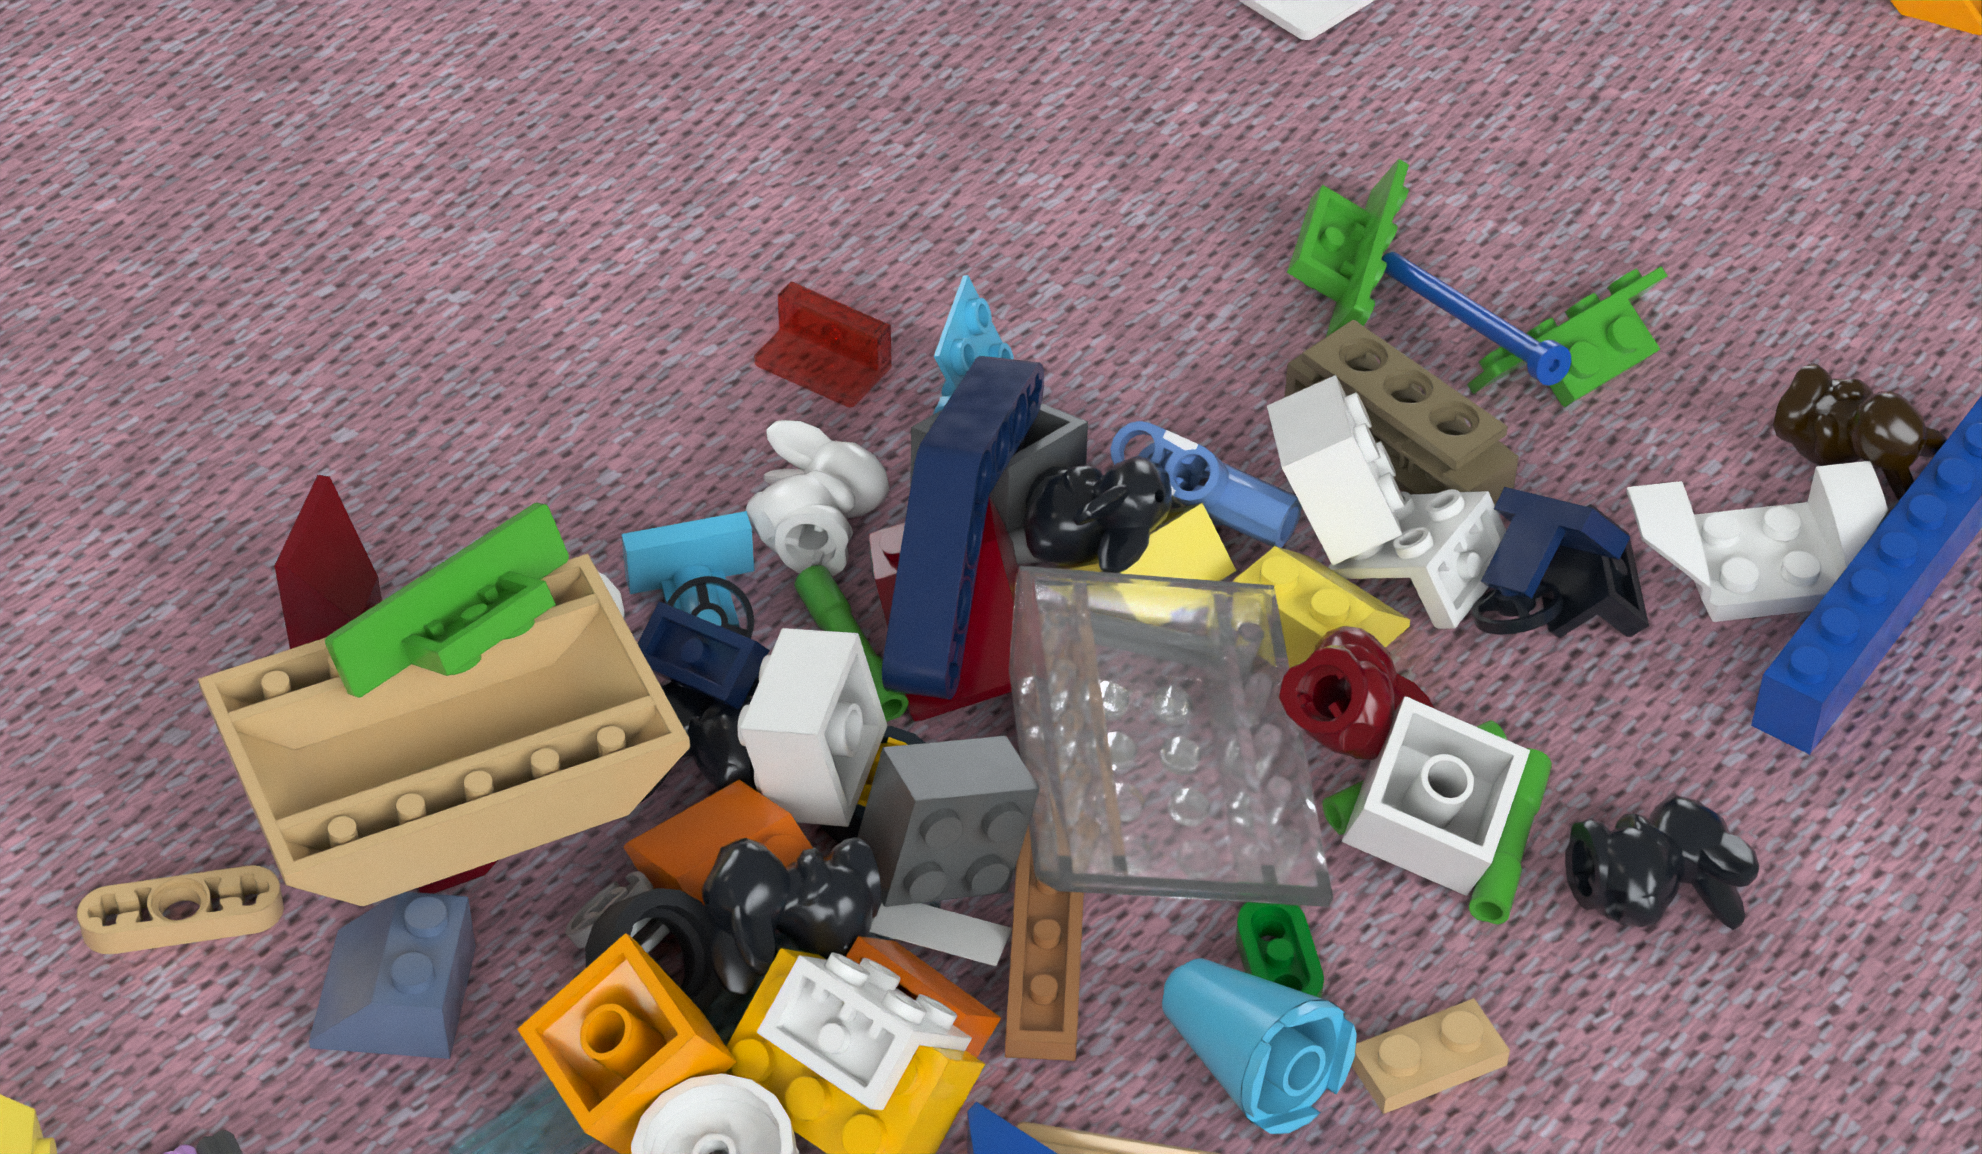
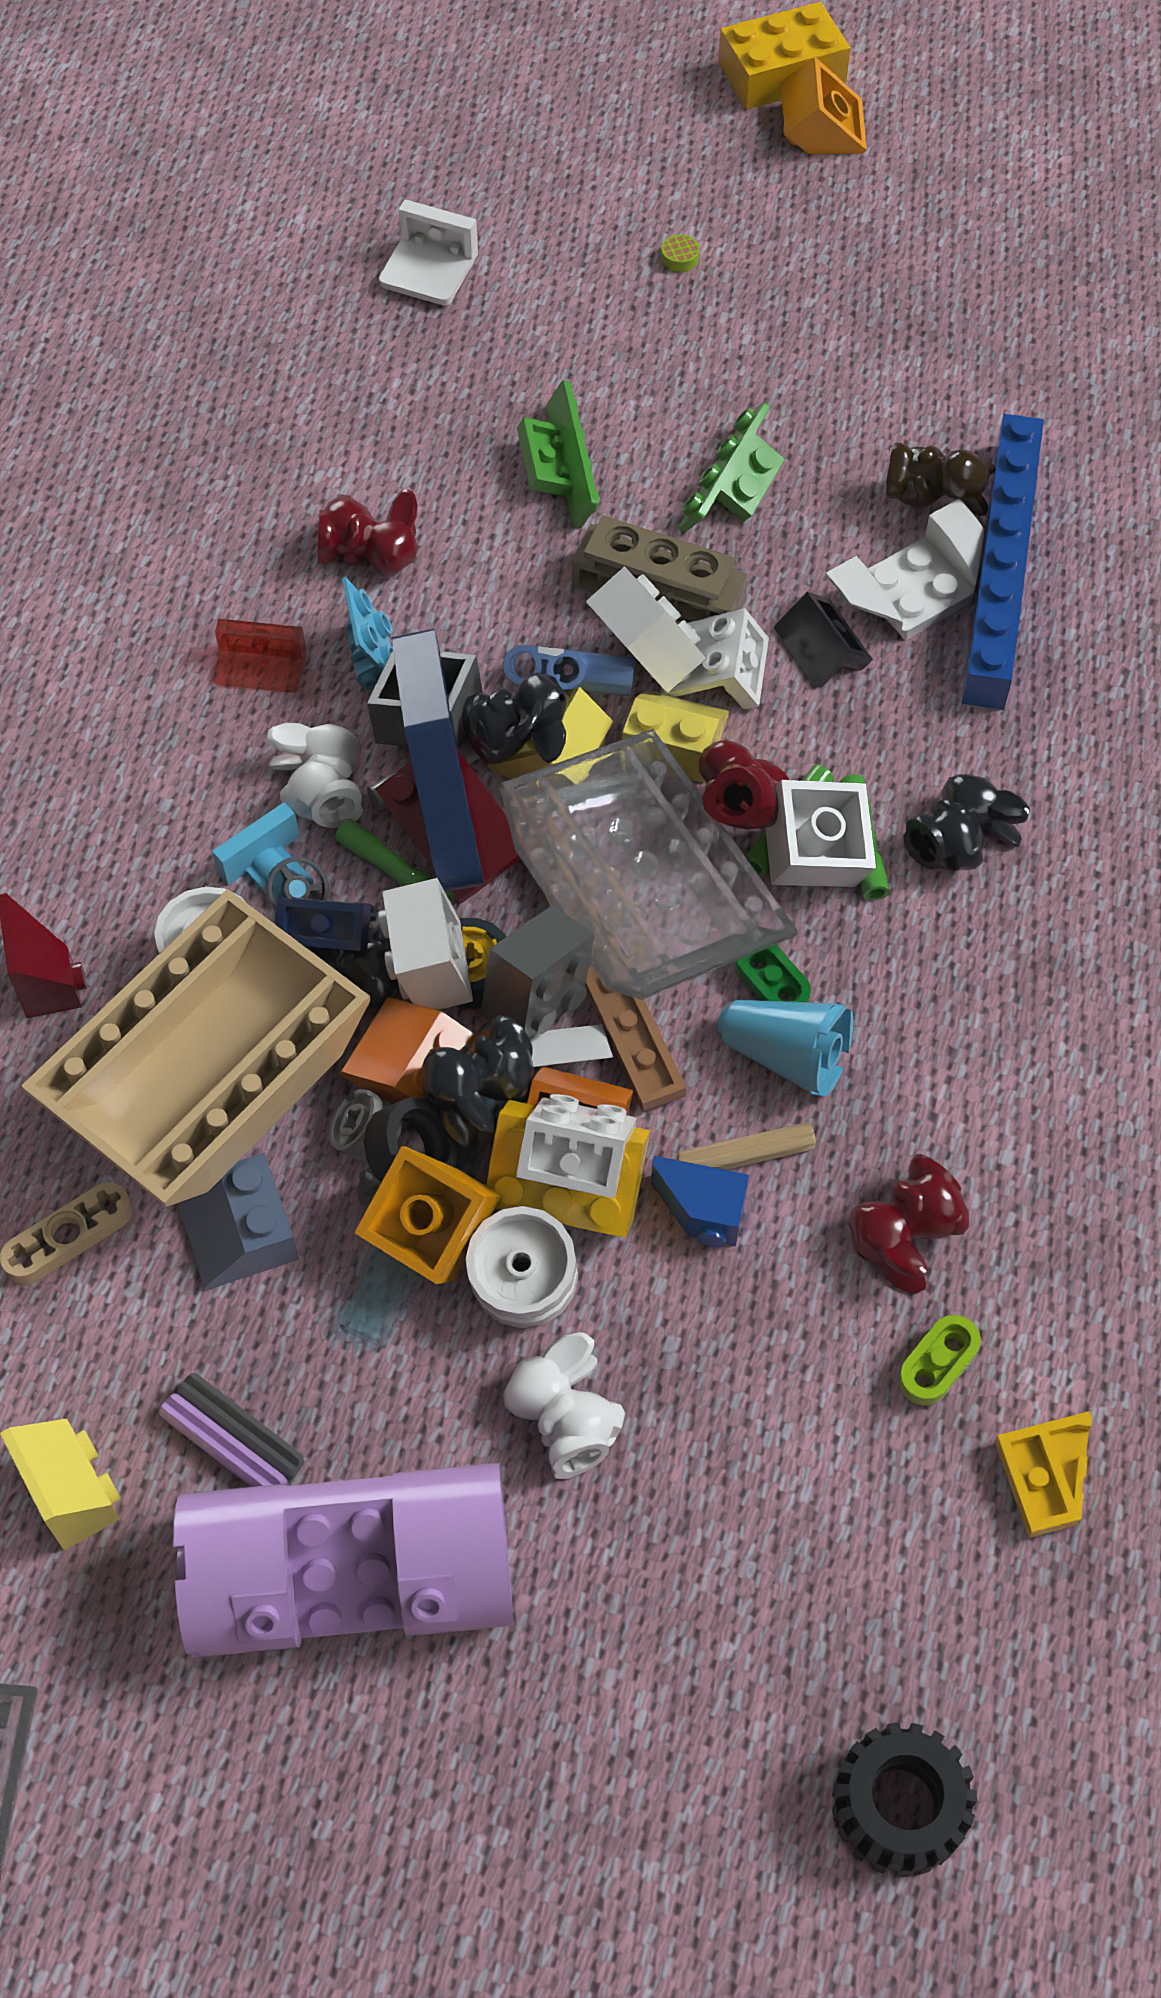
camera: 25 degrees left, 15 degrees up
(456, 608) = (175, 968): bright green bracket -> none
(1023, 246) = (352, 532): none -> dark red animal
(1429, 1055) = (890, 1003): tan plate -> none
(1526, 551) = (788, 643): dark blue piece -> none
(1545, 360) = (735, 500): blue bar -> none
(1653, 73) = (680, 253): none -> lime tile

